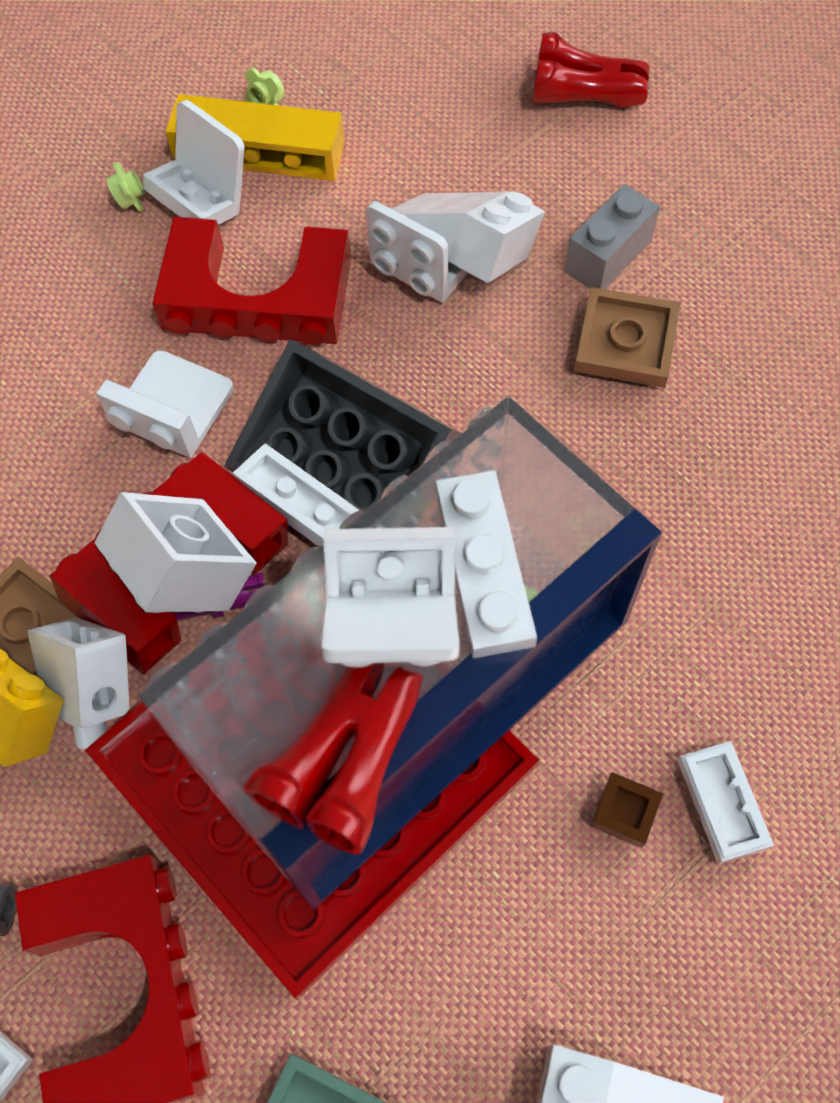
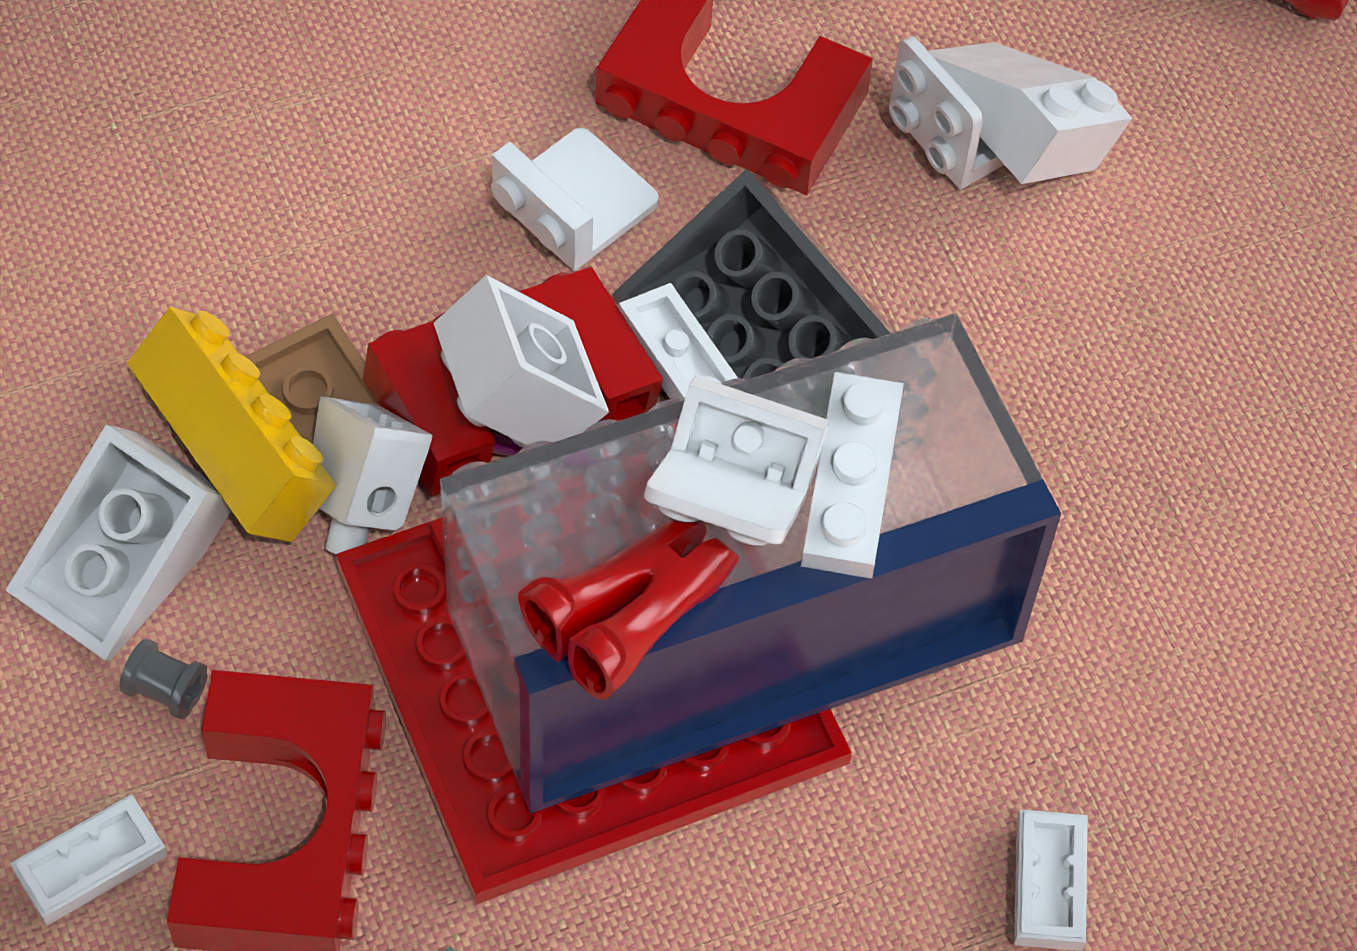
camera: 15 degrees right, 5 degrees down
(611, 238) = (1207, 182): light grey brick -> none
(627, 337) = (1175, 311): medium nougat plate -> none
(627, 810) = (931, 845): reddish brown plate -> none

